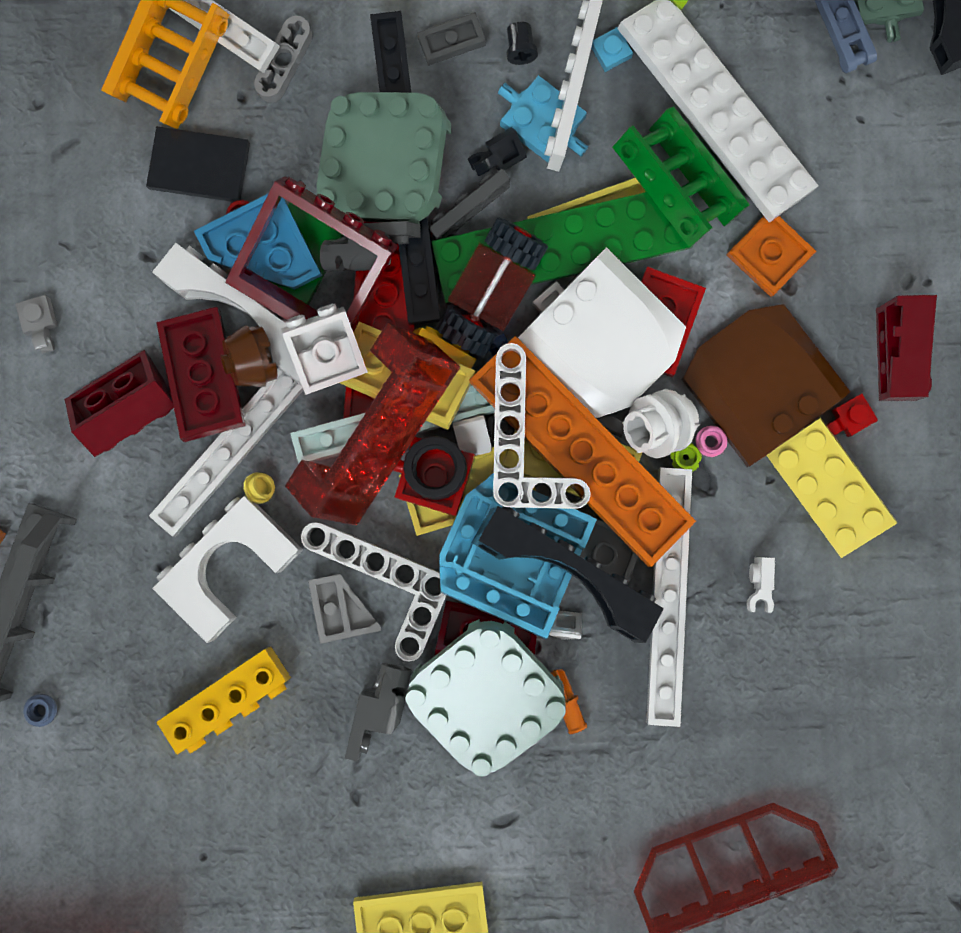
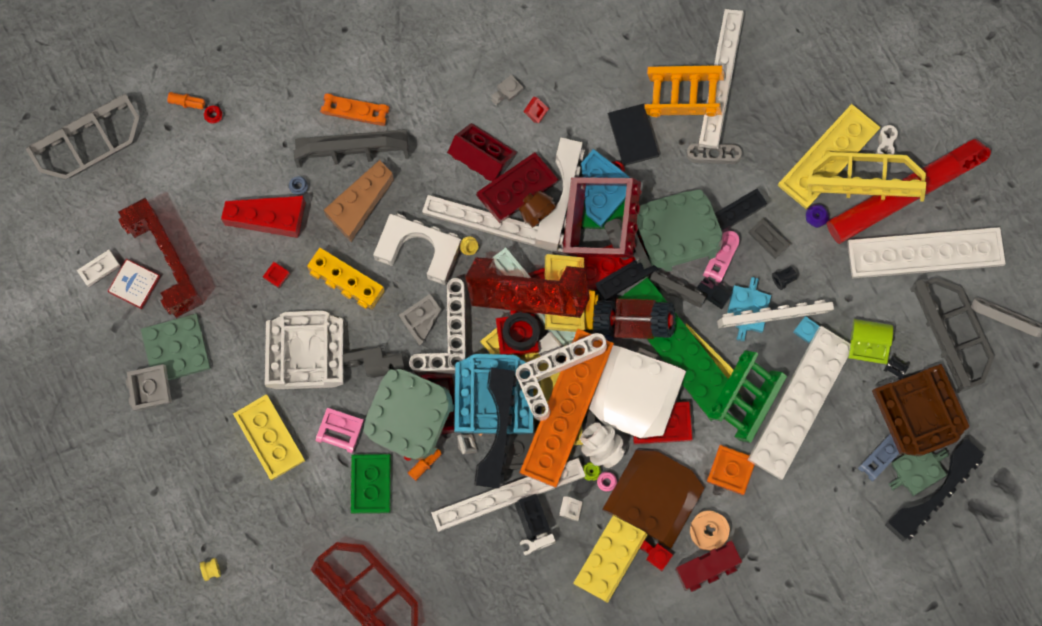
camera: 65 degrees right, 10 degrees down
(66, 777) = (267, 215): none -> red wedge
(90, 291) = (536, 110): none -> red plate
(108, 625) = (359, 200): none -> medium nougat wedge
(169, 806) = (276, 275): none -> red plate
(316, 825) = (304, 351): none -> white wedge
(323, 348) = (558, 243): white plate -> none
(451, 802) = (342, 424): none -> bright pink plate
(457, 117) = (723, 257): none -> bright pink plate
(561, 796) = (370, 484): none -> green tile
(720, 575) = (532, 516): none -> black hinge
(730, 512) = (570, 508): none -> white plate
(861, 312) = (715, 521): none -> light nougat plate

